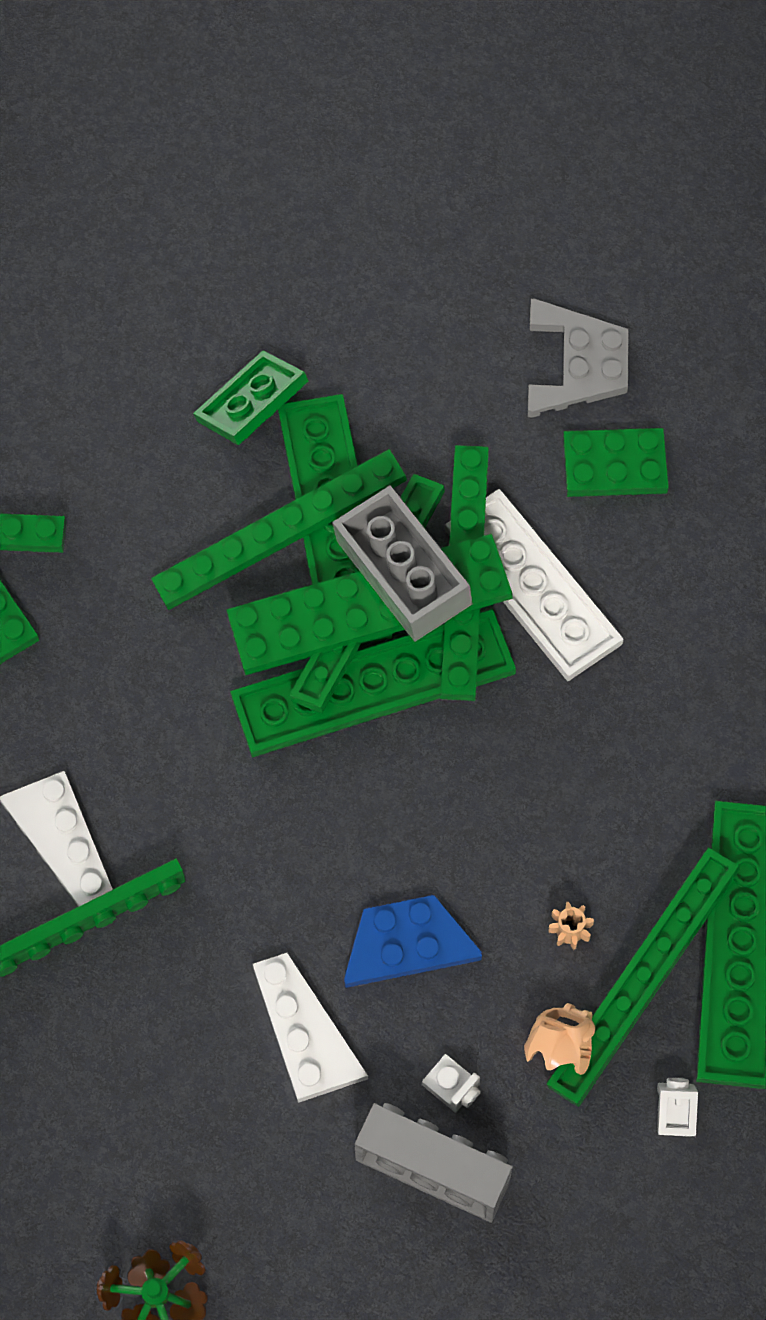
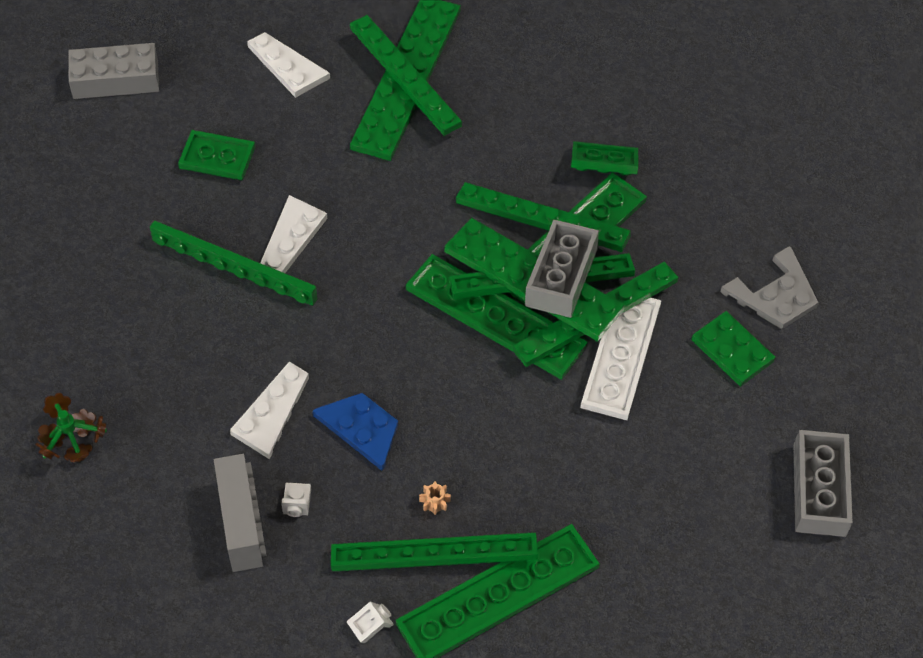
camera: 50 degrees right, 10 degrees down
(560, 1041) = (357, 533): light nougat helmet -> none

